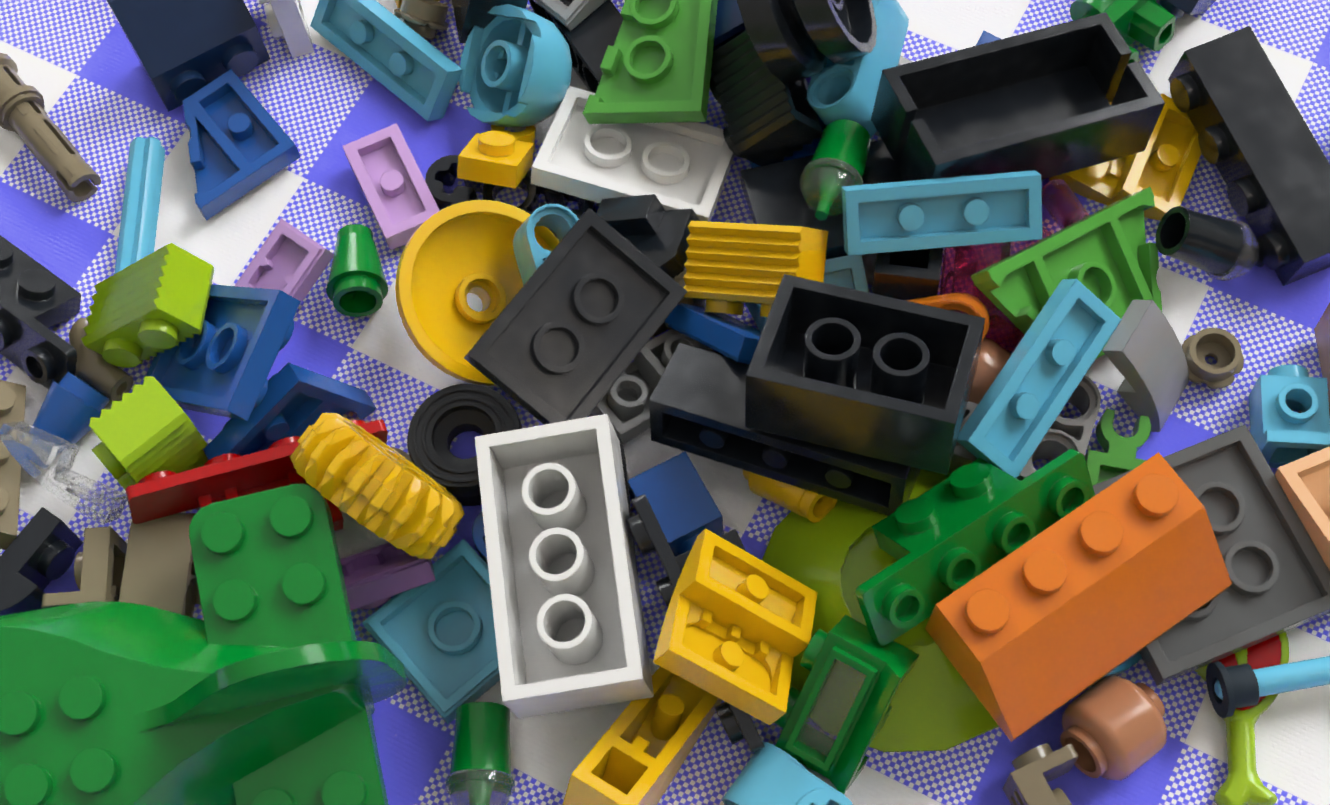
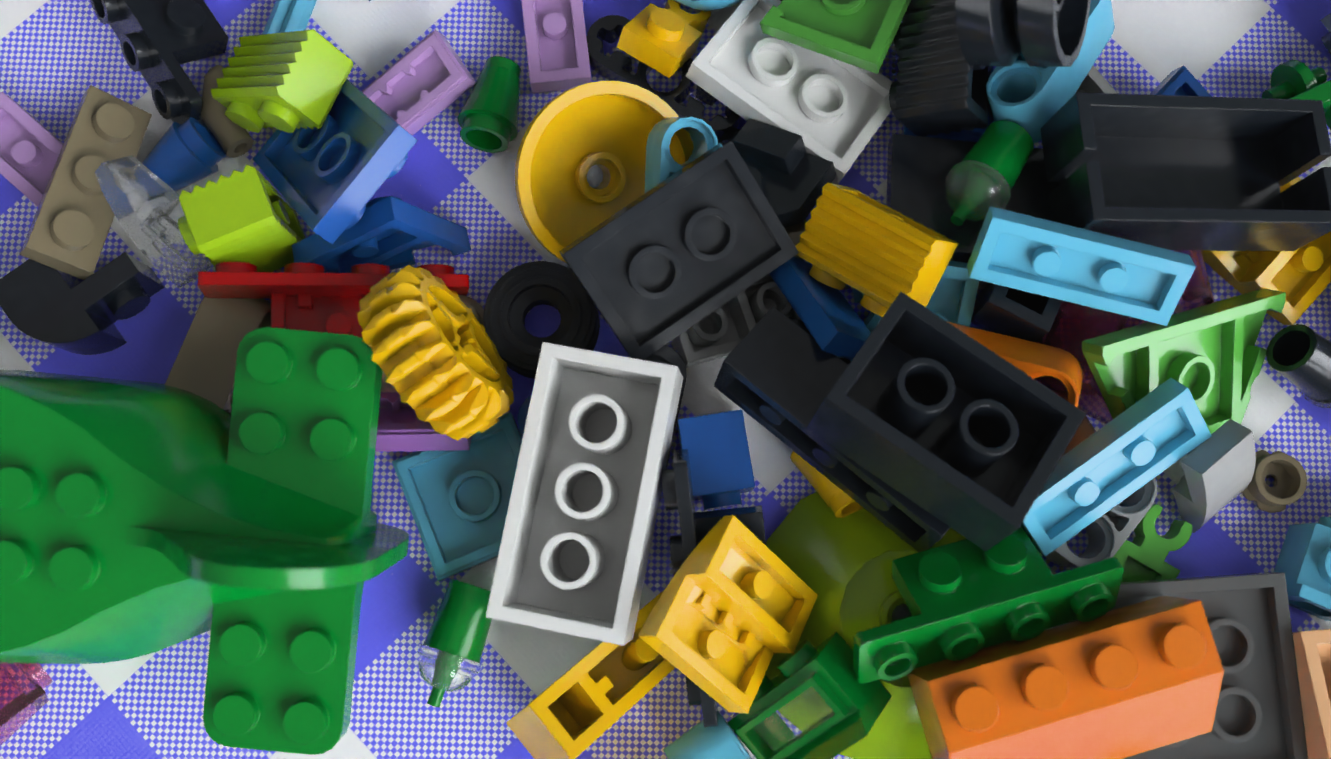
camera: 10 degrees right, 15 degrees up
(96, 570) = (162, 335): dark tan bracket -> none

